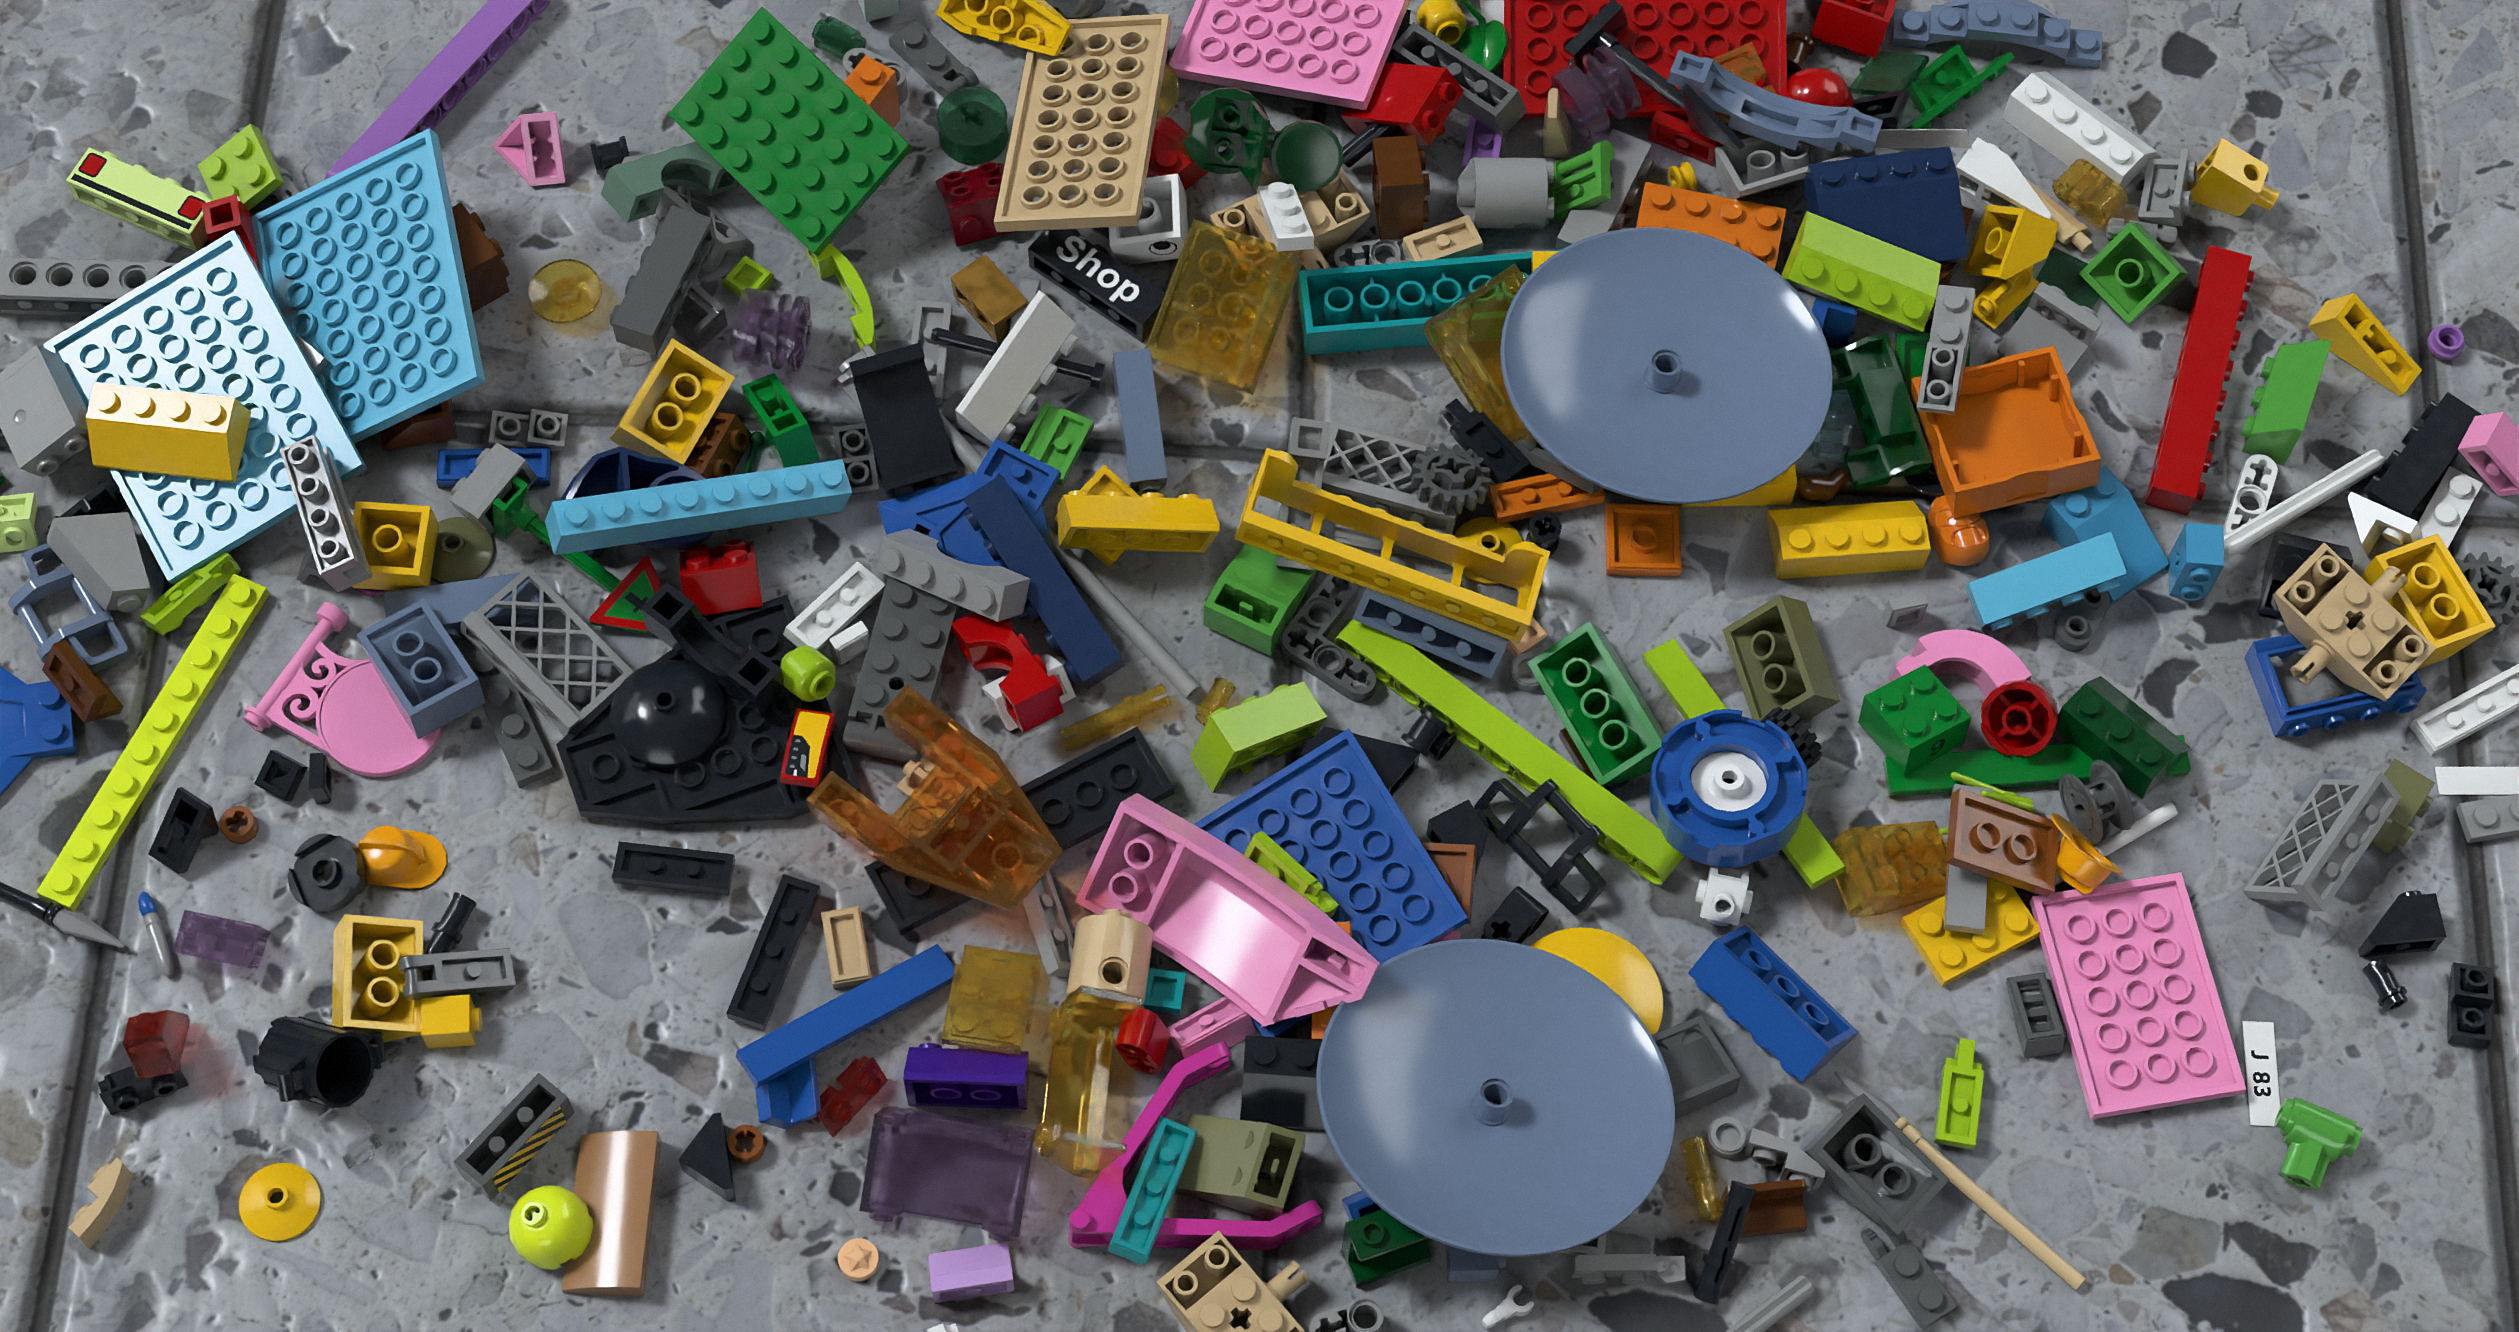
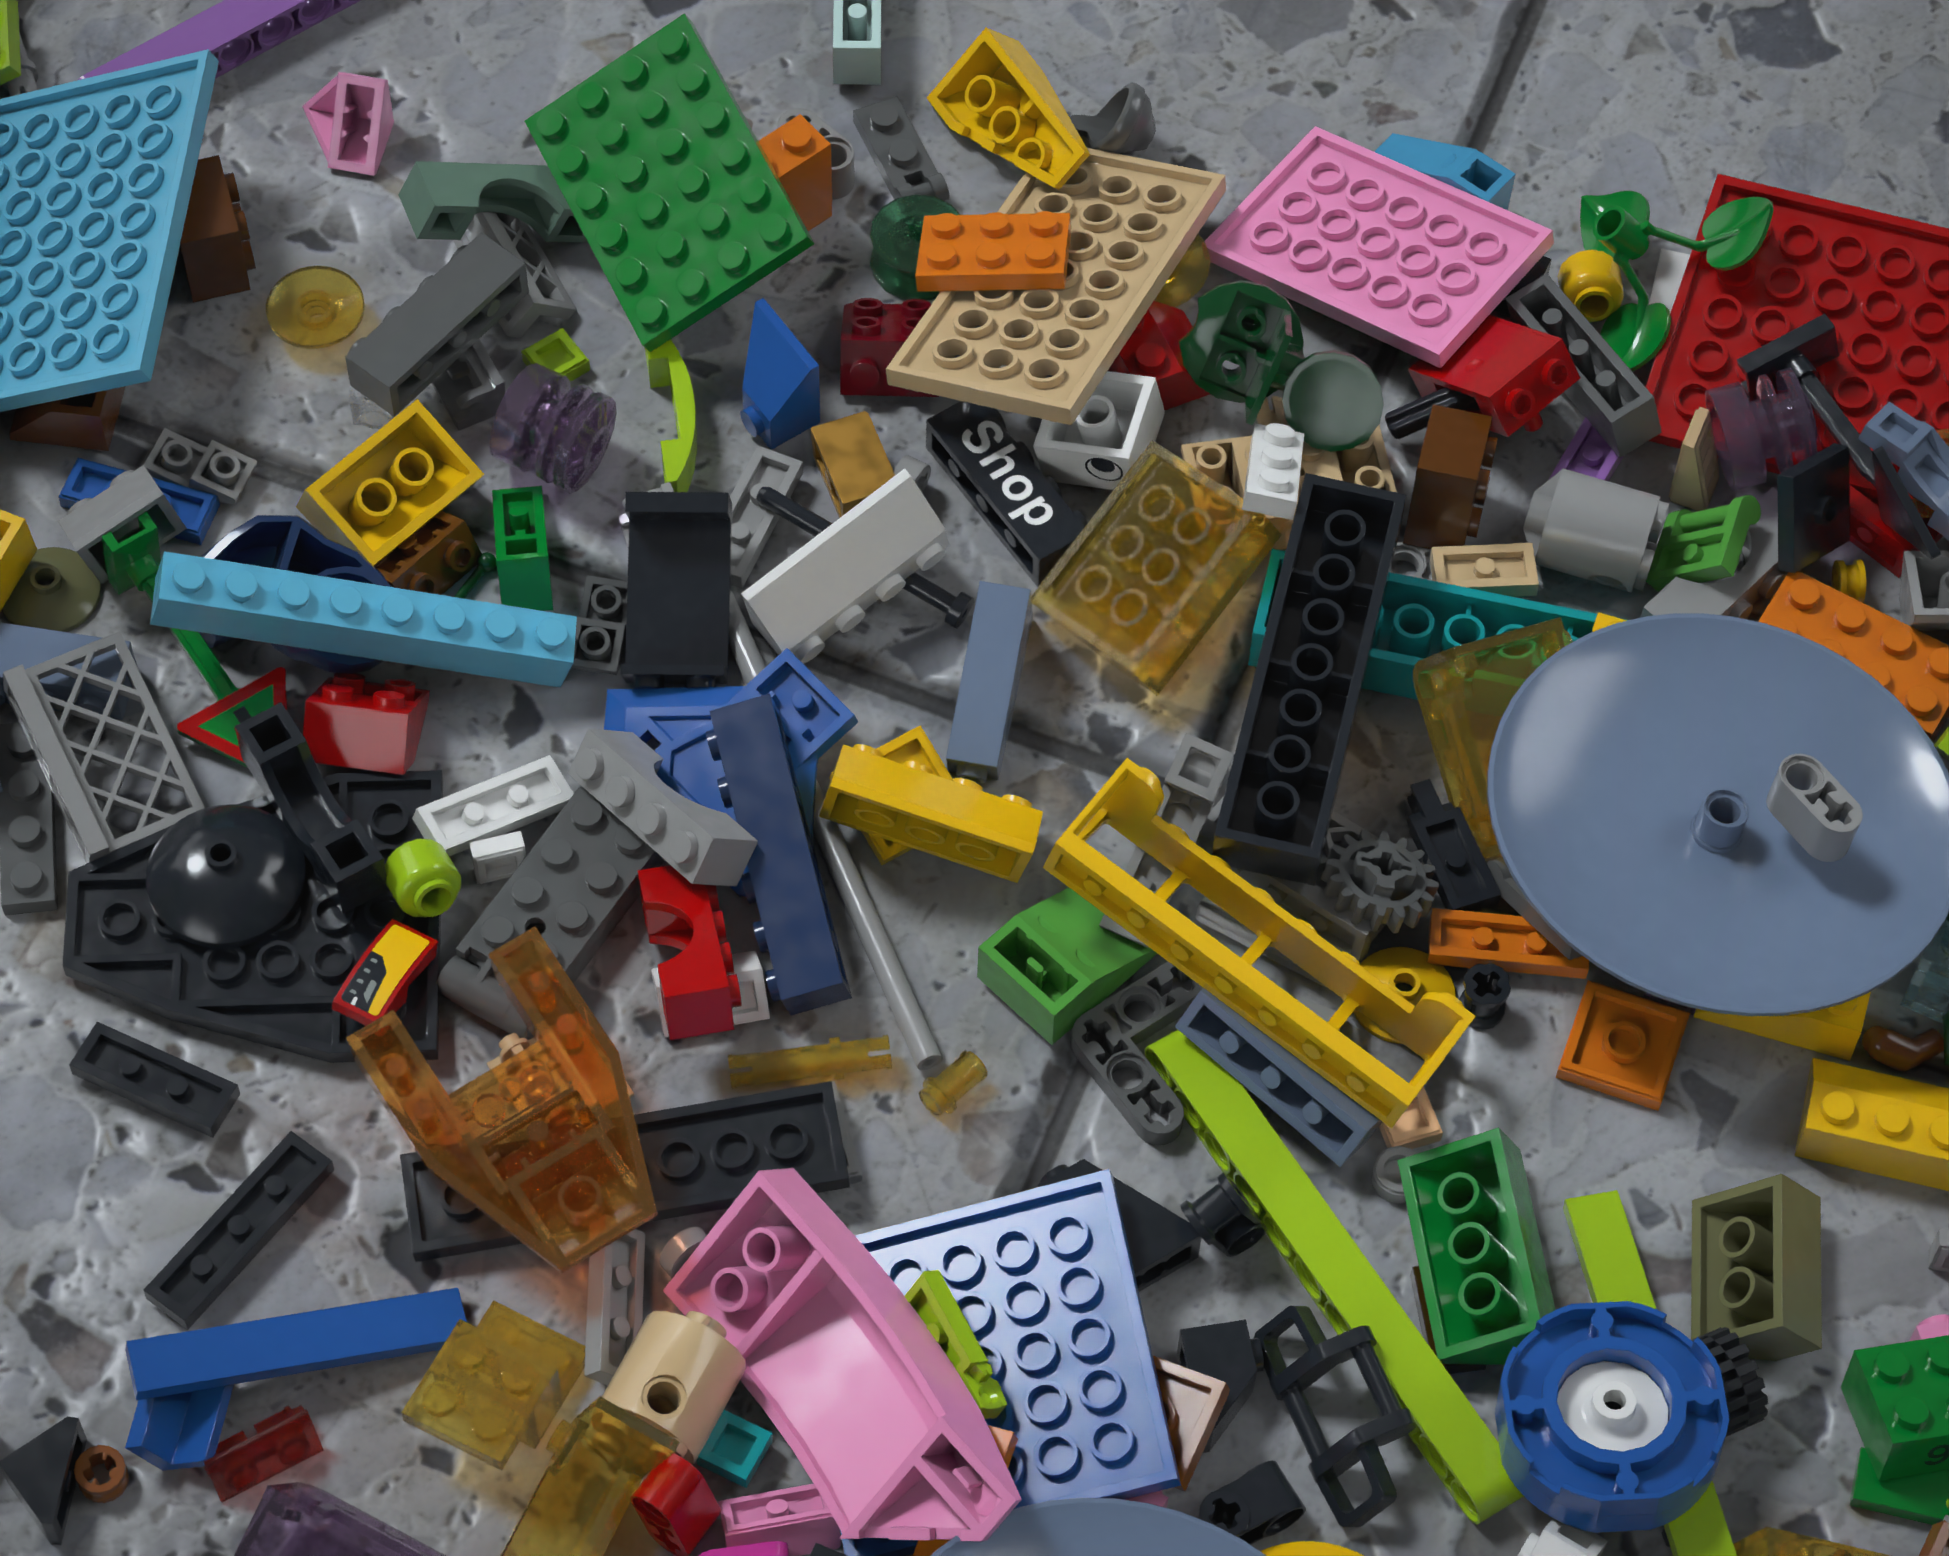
camera: 20 degrees right, 5 degrees down
(609, 154) = (442, 150): black bush -> none
(836, 37) = (784, 88): clear green brick -> none
(846, 947) = (338, 1253): tan tile -> none
(916, 249) = (778, 381): none -> blue slope
(966, 1078) = (421, 1478): dark purple slope -> none
(1033, 115) = (993, 252): none -> orange plate
(1057, 438) = (874, 677): bright green plate -> none
(1079, 870) = (680, 1249): none -> light grey tile
(1254, 730) = (989, 1136): lime wedge -> none
(1360, 355) = (1309, 679): none -> black brick
(1648, 136) = (1813, 508): none -> black plate
(1725, 345) = (1814, 807): none -> light grey beam

